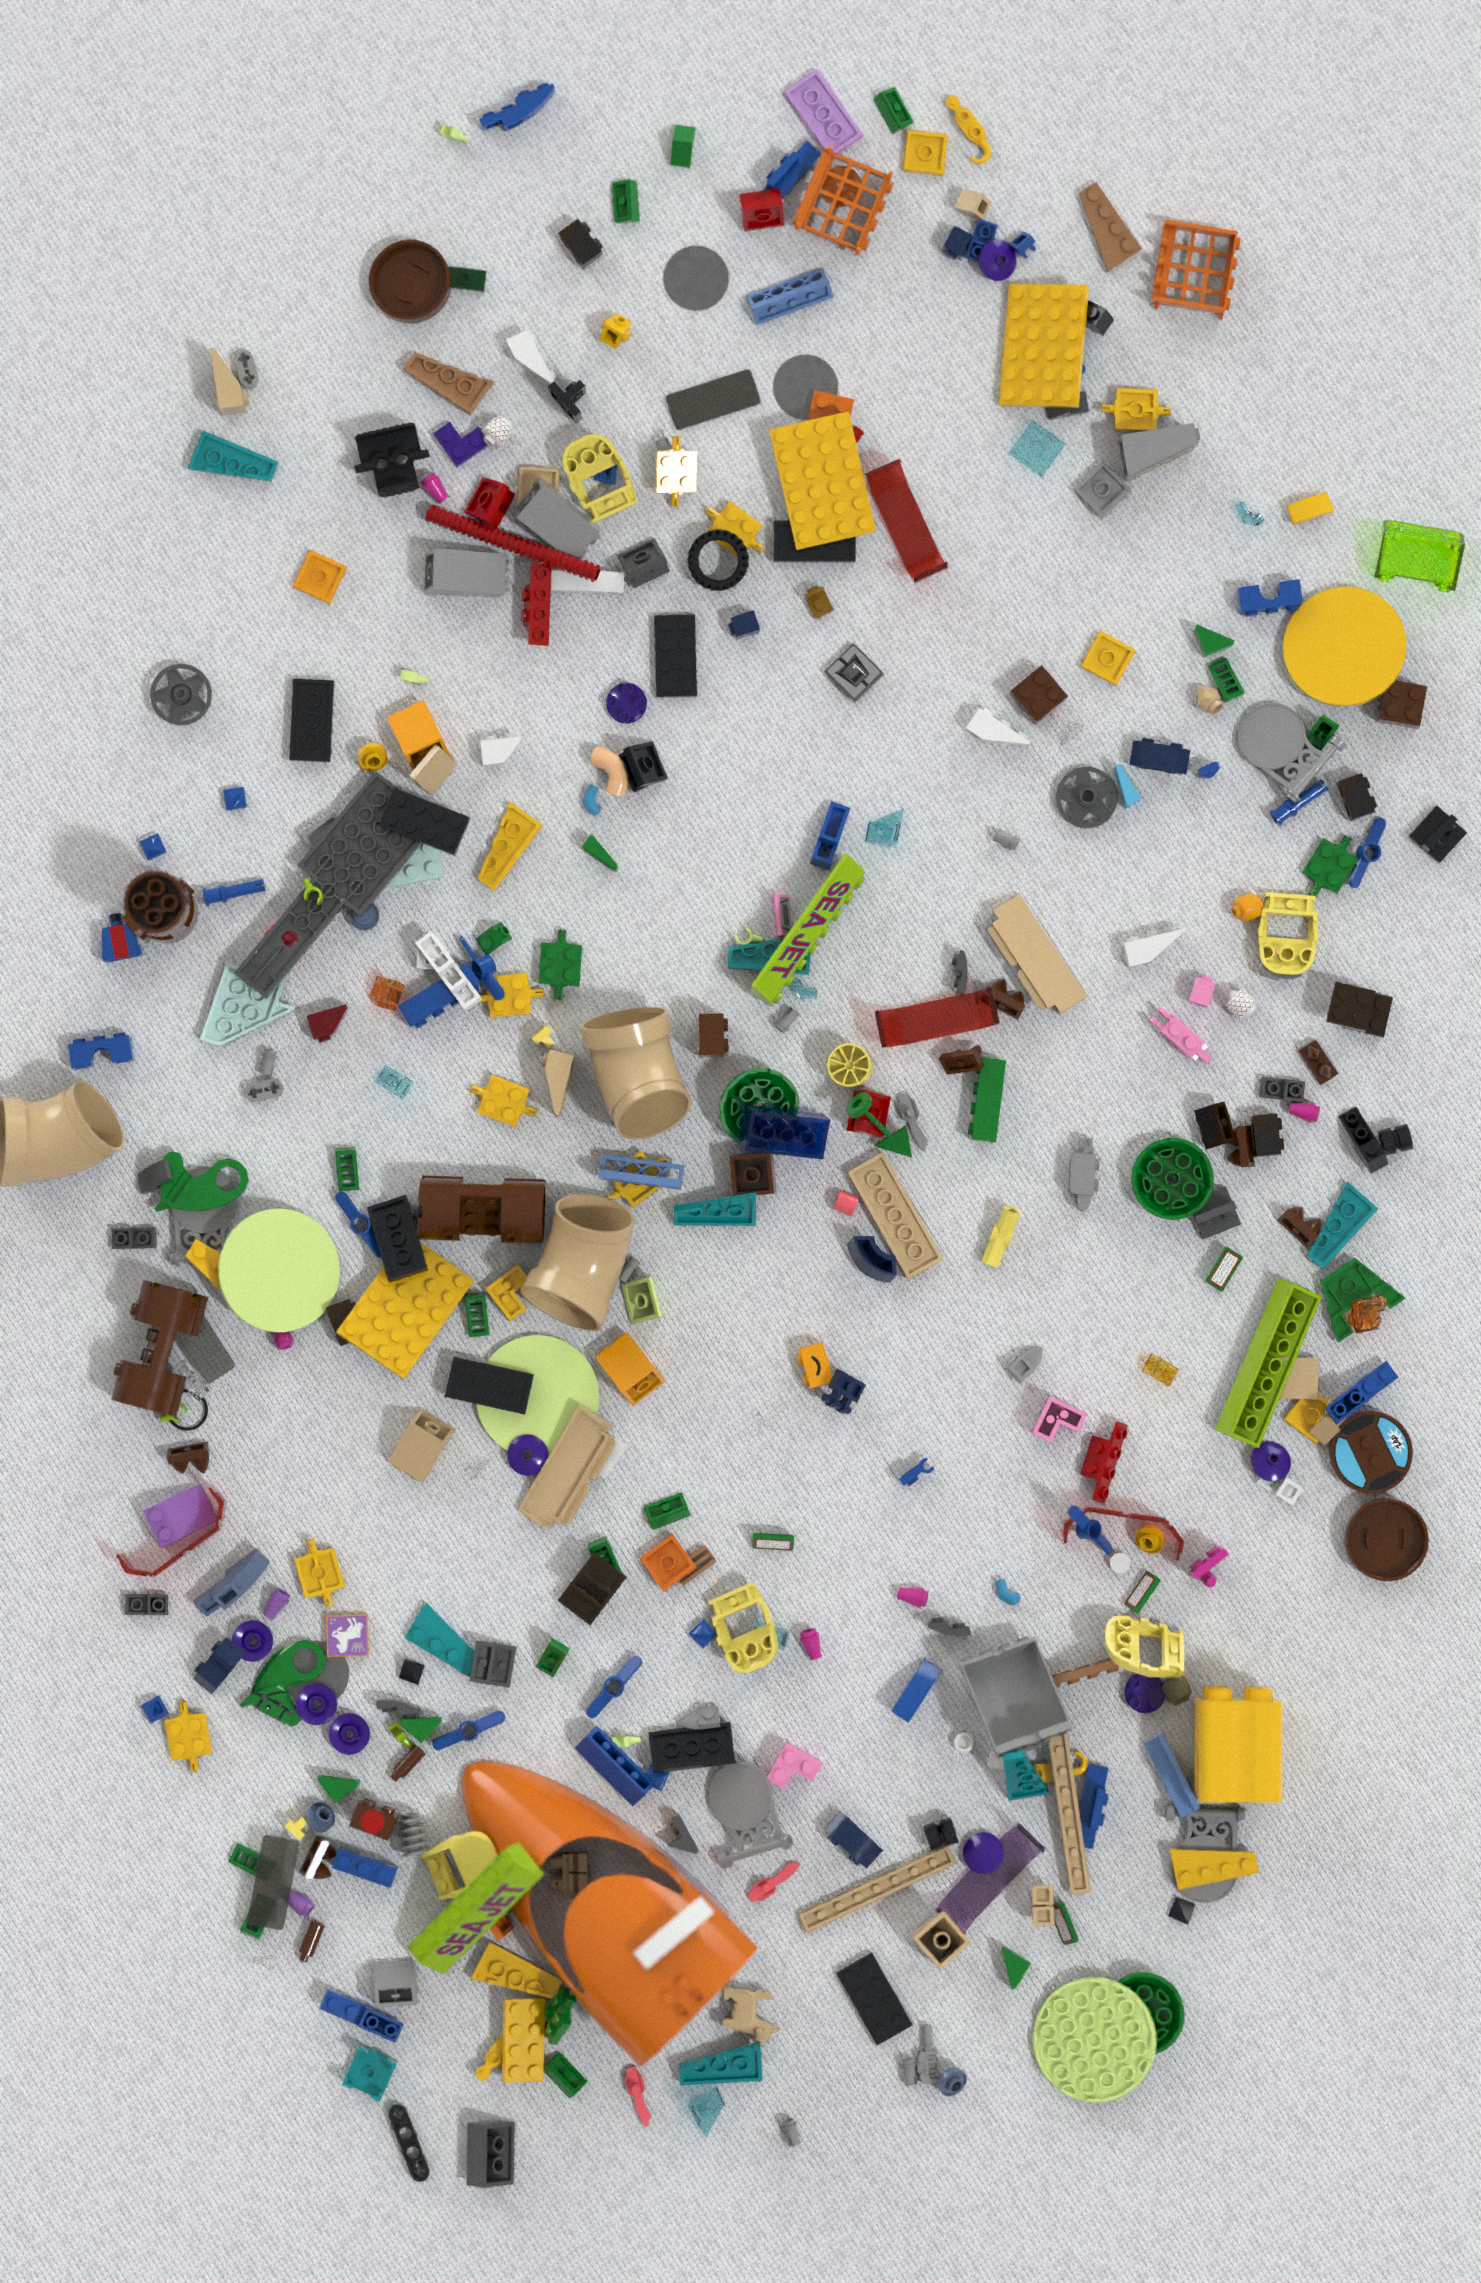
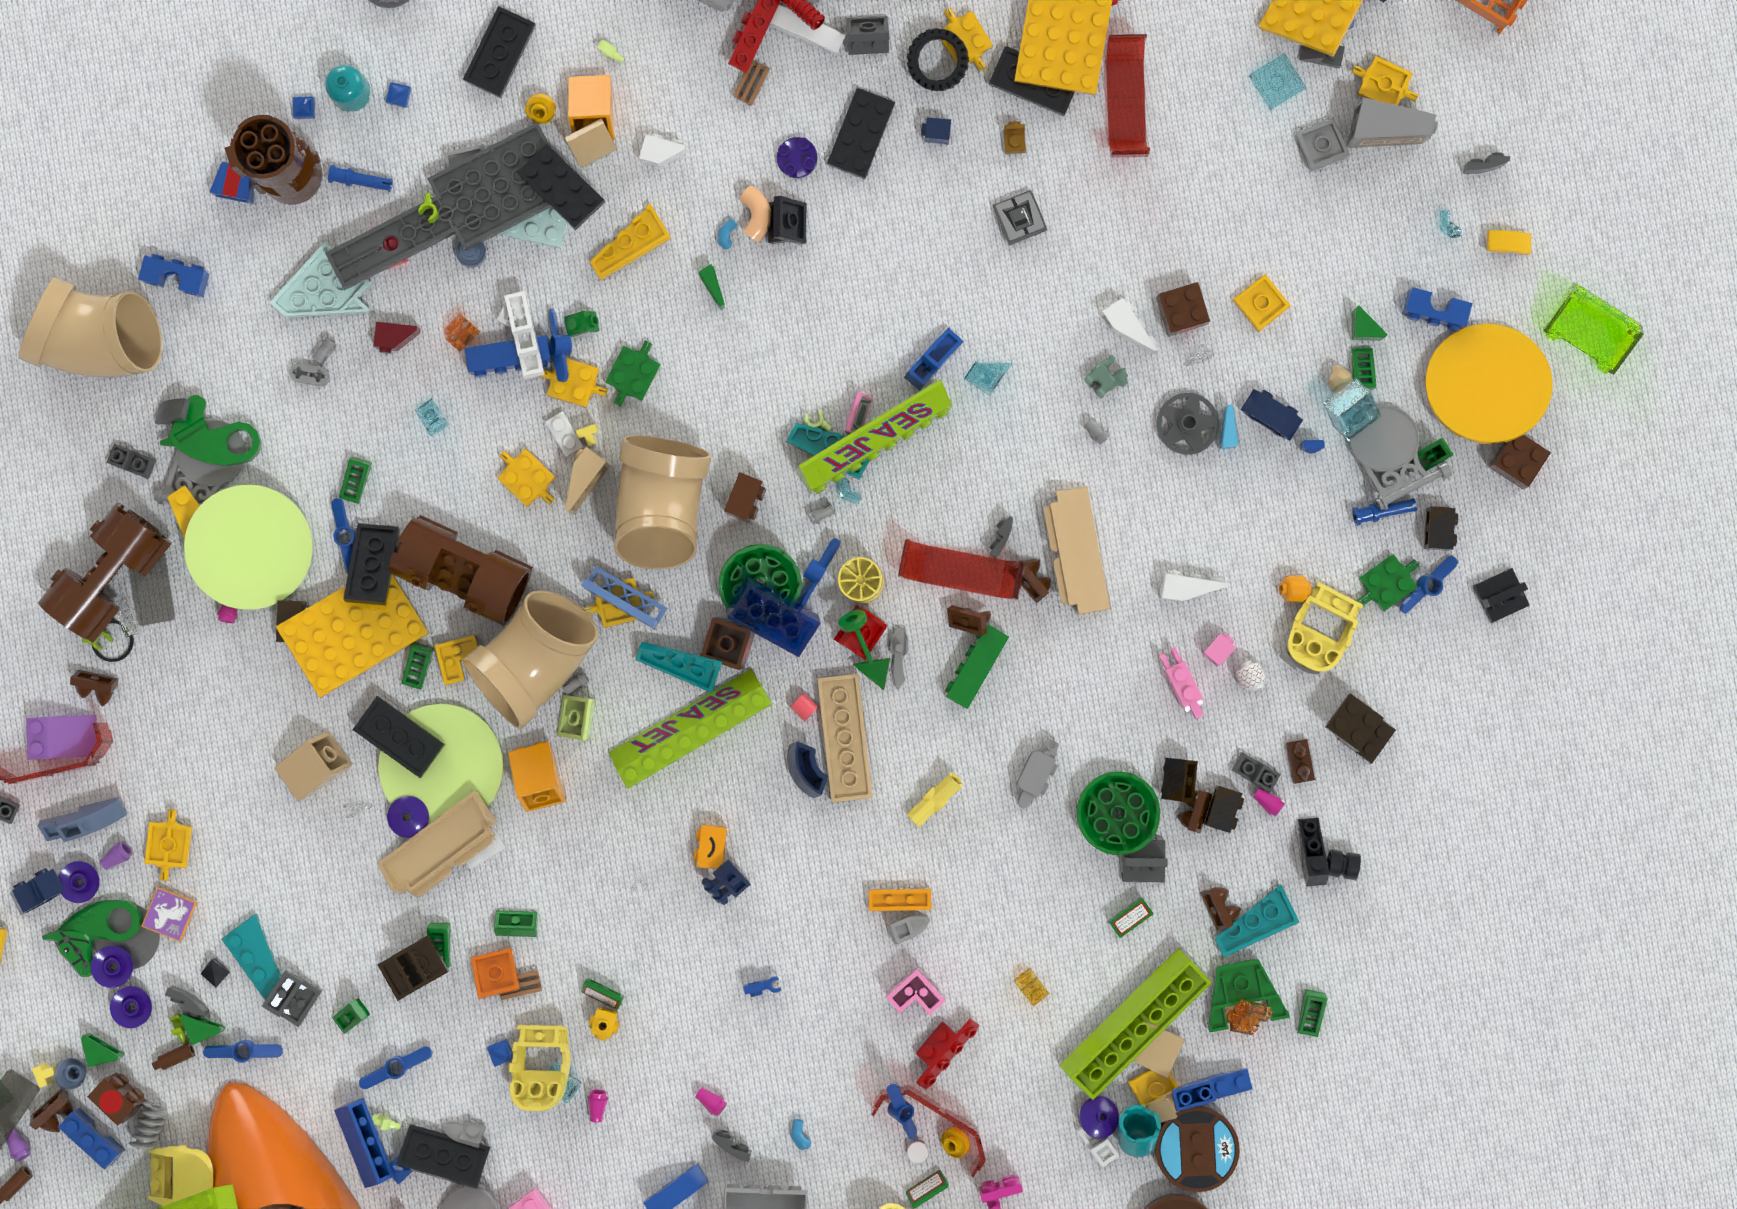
camera: 25 degrees right, 0 degrees up
(187, 812) = (347, 88): none -> teal cylinder
(521, 1046) = (564, 434): none -> white plate
(563, 652) = (743, 98): none -> medium nougat tile
(750, 1266) = (690, 728): none -> lime slope
(786, 1558) = (607, 1016): none -> yellow brick
(804, 1074) = (816, 571): none -> blue piece
(991, 787) = (1104, 379): none -> sand green animal
(1007, 1341) = (899, 899): none -> light orange plate
(1230, 722) = (1352, 409): none -> clear light blue brick
(1264, 441) = (1491, 163): none -> dark grey slope
(1310, 1457) = (1138, 1131): none -> teal cylinder
(1430, 1277) = (1317, 996): none -> green slope

